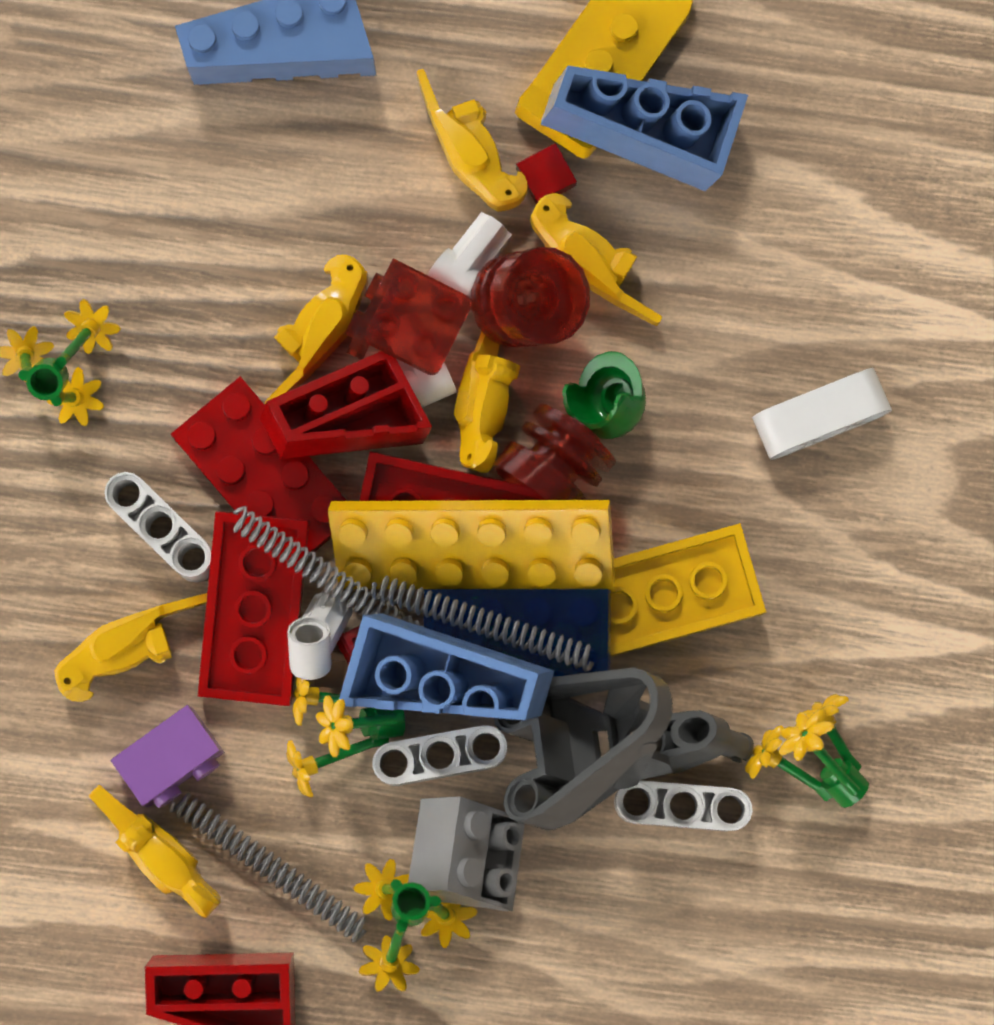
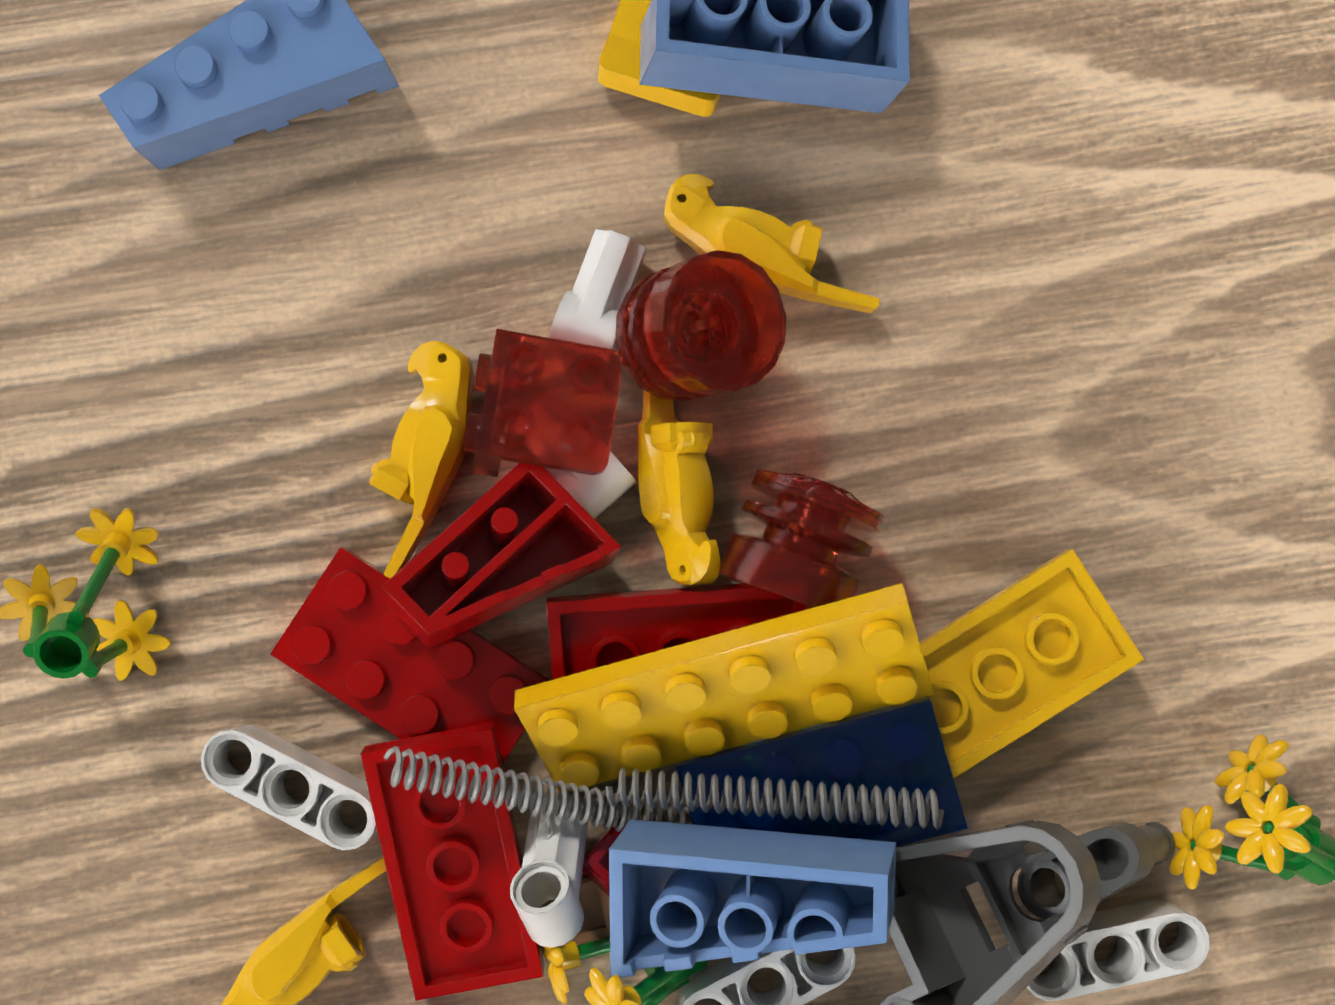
camera: 20 degrees left, 5 degrees up
(473, 151) = (558, 148): yellow animal -> none
(546, 173) = (664, 151): red tile -> none
(608, 396) = (841, 429): green helmet -> none
(821, 413) = (1129, 366): white beam -> none

